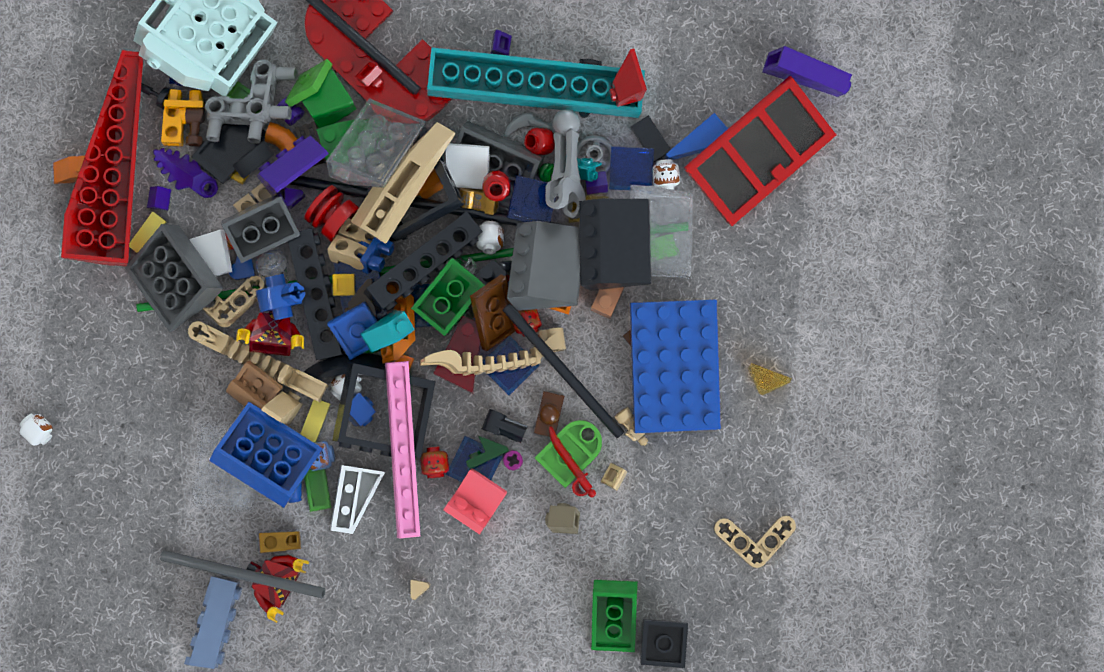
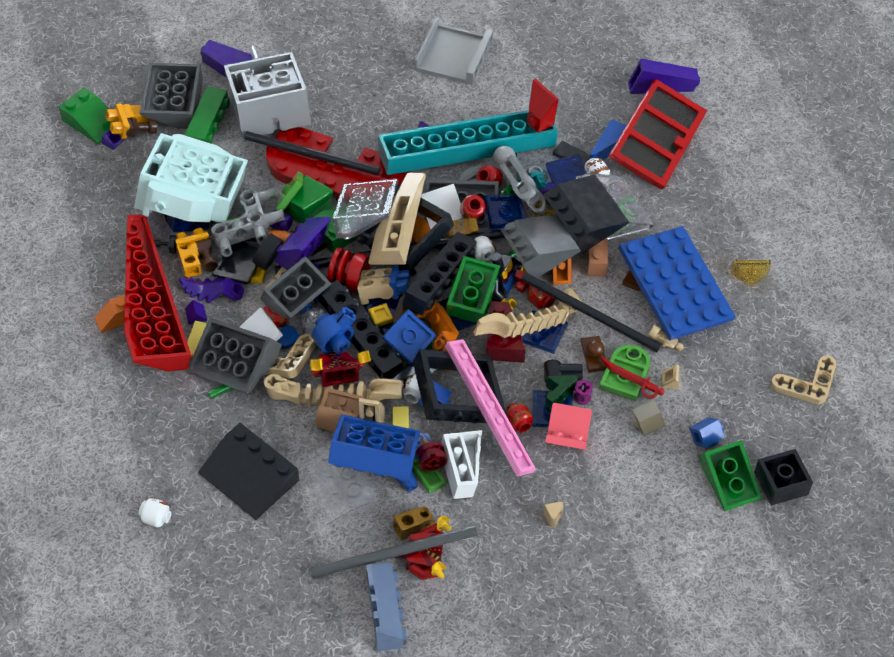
camera: 25 degrees left, 30 degrees down
(142, 419) = (249, 471): none -> black slope
(322, 481) = (431, 456): none -> dark red wheel
(369, 75) = (337, 171): red tile -> none
(387, 330) = (436, 322): teal slope -> none
(490, 320) = (513, 287): reddish brown tile -> none
(615, 560) = (707, 432): none -> blue brick

